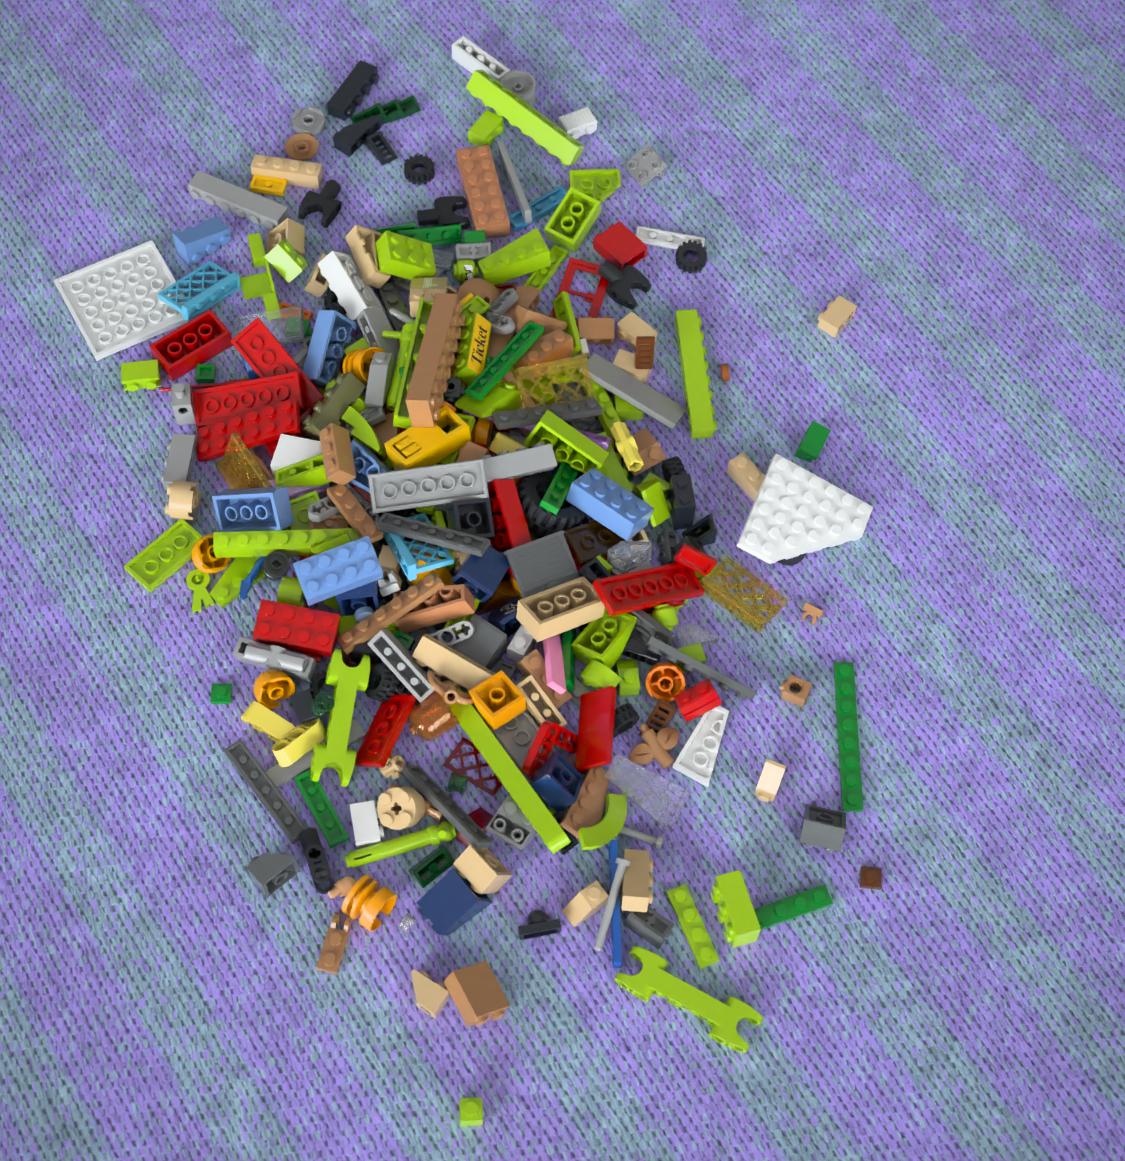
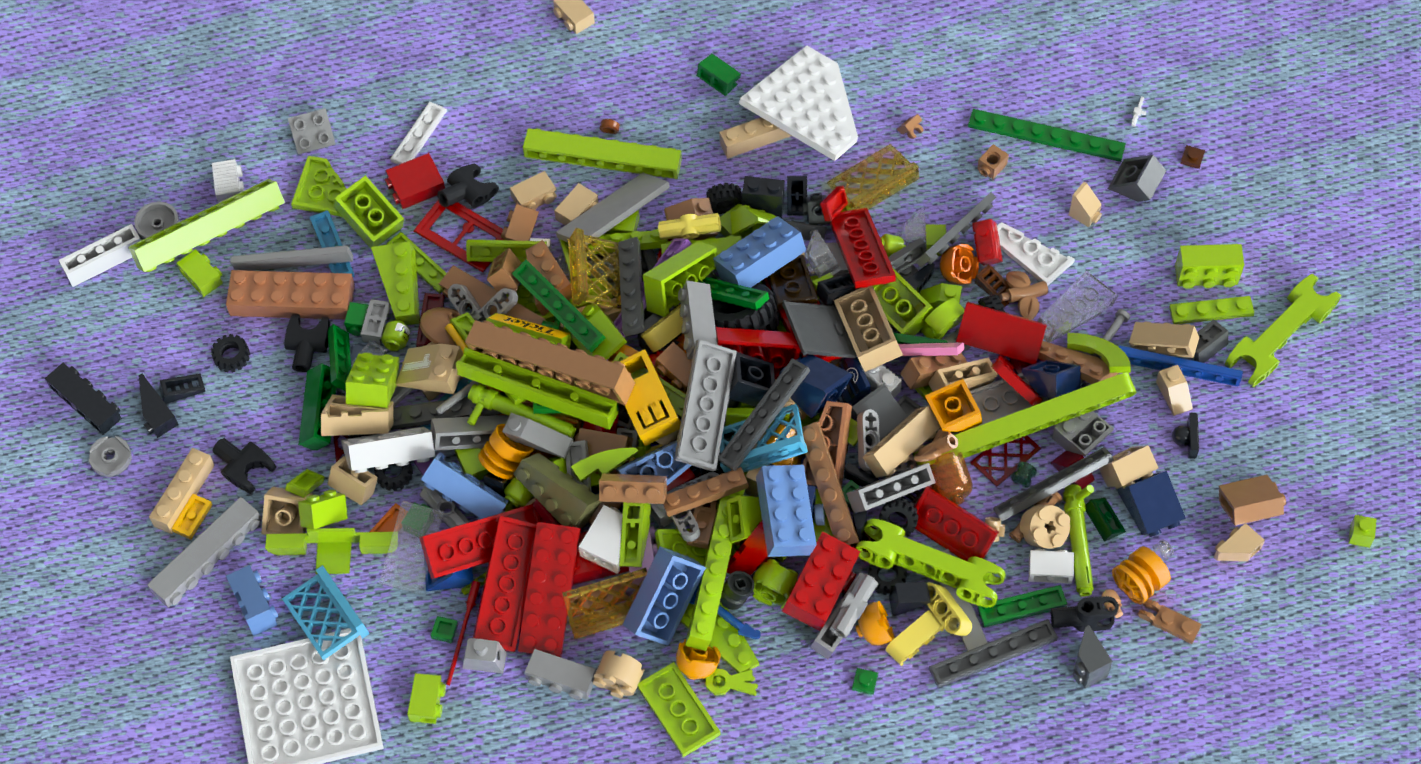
camera: 70 degrees left, 0 degrees up
(191, 345) = (404, 634): red brick -> none
(301, 141) = (147, 461): medium nougat dish -> none
(310, 244) = (305, 483): none -> lime tile
(325, 700) = (918, 572): clear green wheel -> none
(389, 112) = (130, 368): dark green slope -> none
(622, 863) = (1152, 341): light grey bar -> none
(644, 353) = (578, 183): reddish brown slope -> none
(691, 247) = (457, 109): black tyre -> none
(793, 907) = (1207, 218): green plate -> none
(907, 815) = (1137, 112): none -> white piece

